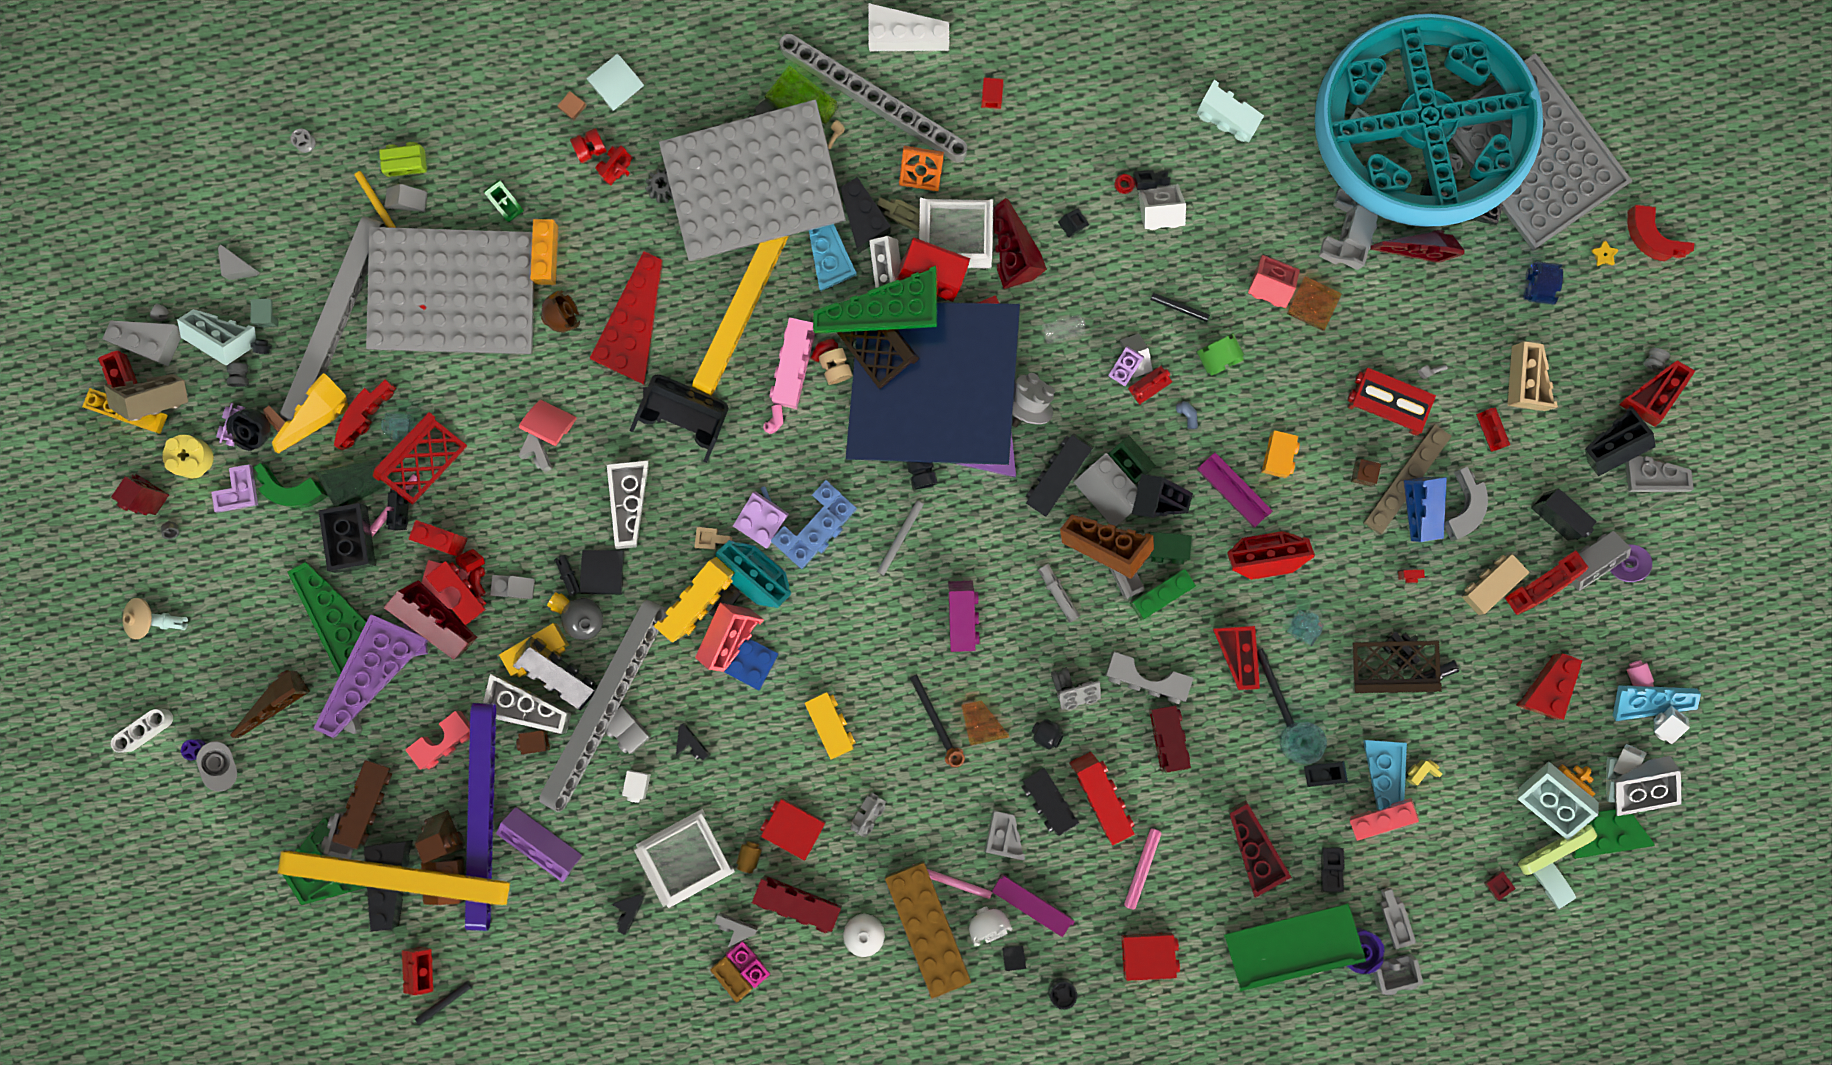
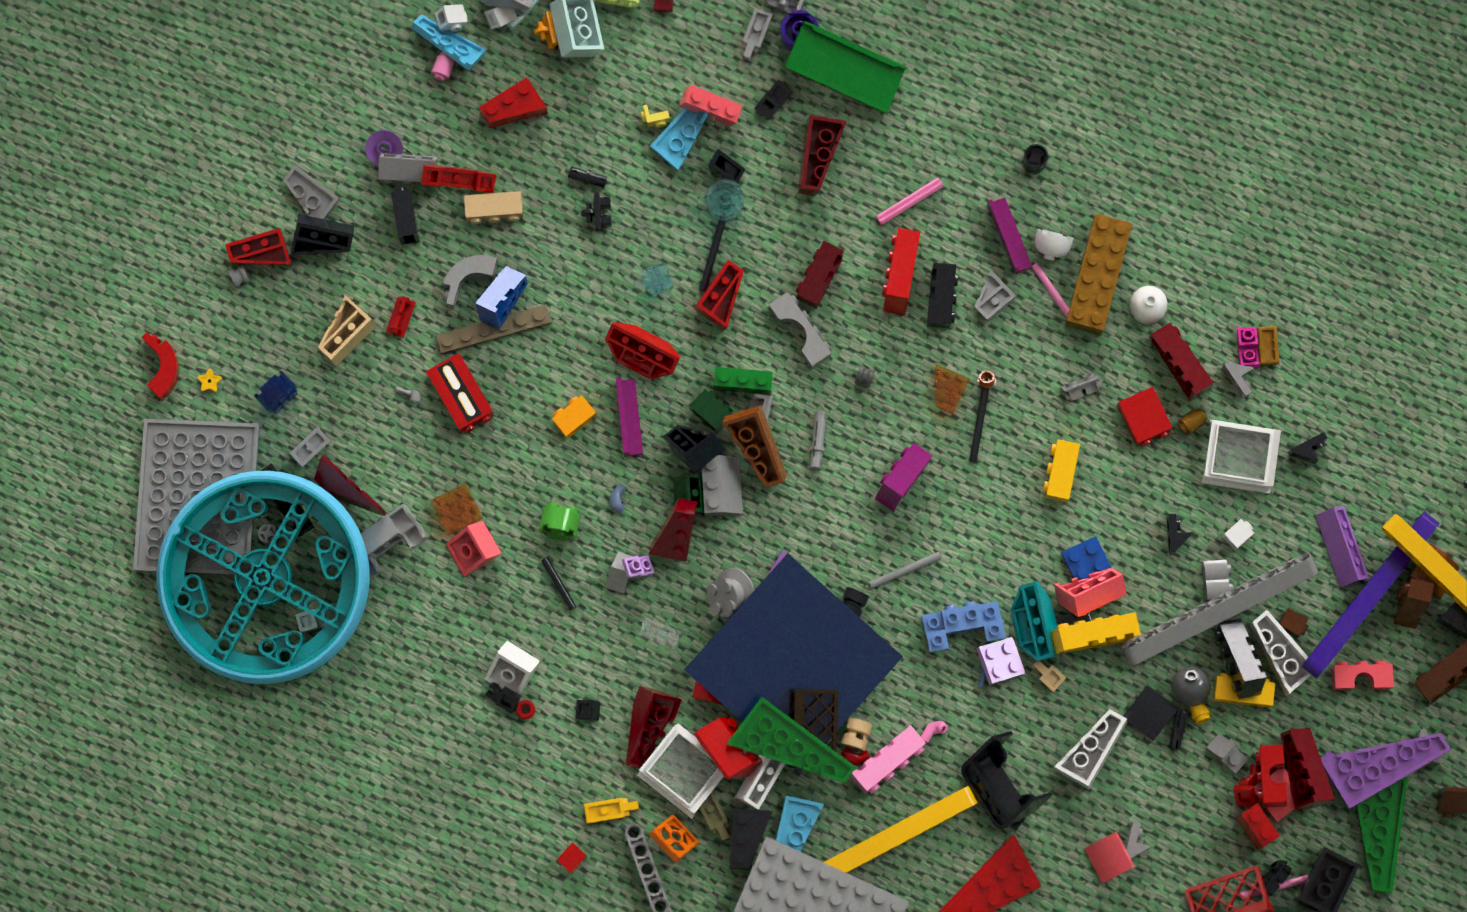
camera: 145 degrees left, 5 degrees down
(992, 154) = (609, 810): none -> yellow hinge
(1014, 958) = (1051, 208): black slope -> none
(1047, 734) = (905, 345): black head -> none
(1059, 474) = (749, 524): black wedge -> none
(1087, 693) = (870, 356): light grey hinge -> none
(1116, 417) = (676, 532): none -> dark red wedge
(1150, 384) = (628, 542): red hinge -> none
(1150, 956) = (952, 138): red brick -> none
(1229, 113) = (404, 700): light aqua wedge -> none
(1365, 472) = (522, 355): reddish brown brick -> none
(1397, 685) = (627, 191): dark brown fence -> none
(1411, 576) = (549, 258): red plate -> none
(1478, 260) = (309, 447): none -> light grey hinge

